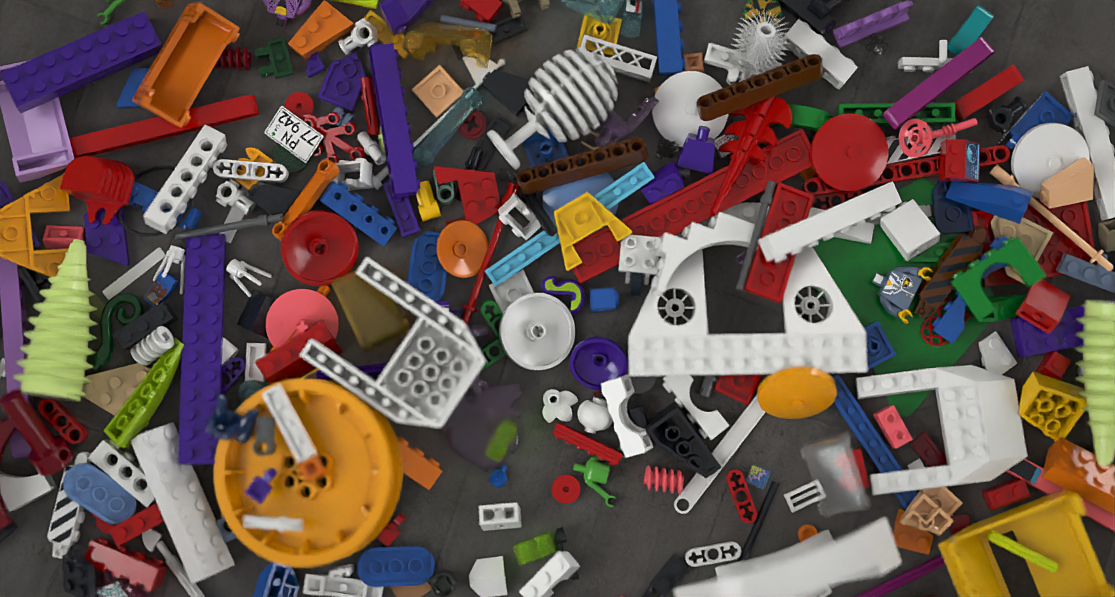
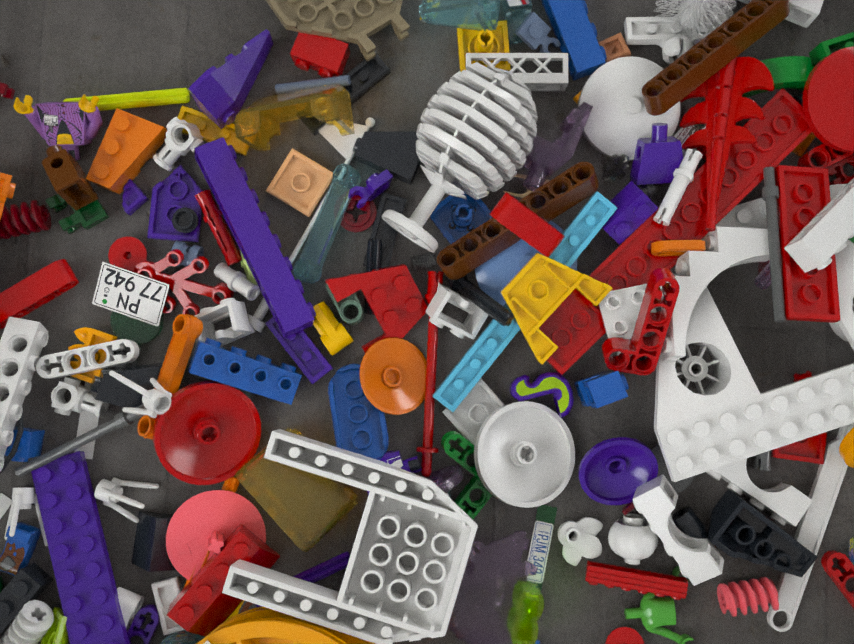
camera: 20 degrees left, 0 degrees up
(276, 39) = (64, 173): none -> reddish brown torso
(292, 212) = (155, 400): none -> white plant
(348, 93) = (185, 220): none -> black plate
(491, 109) = (375, 186): none -> dark purple plate
(530, 399) = (541, 542): none -> sticker
(585, 170) = (527, 225): none -> red beam
(639, 35) = (534, 33): none -> sand blue plate
(646, 261) = (645, 323): none -> red beam
(687, 218) = (676, 247): none -> orange tile
(708, 170) = (682, 177): none -> white pin

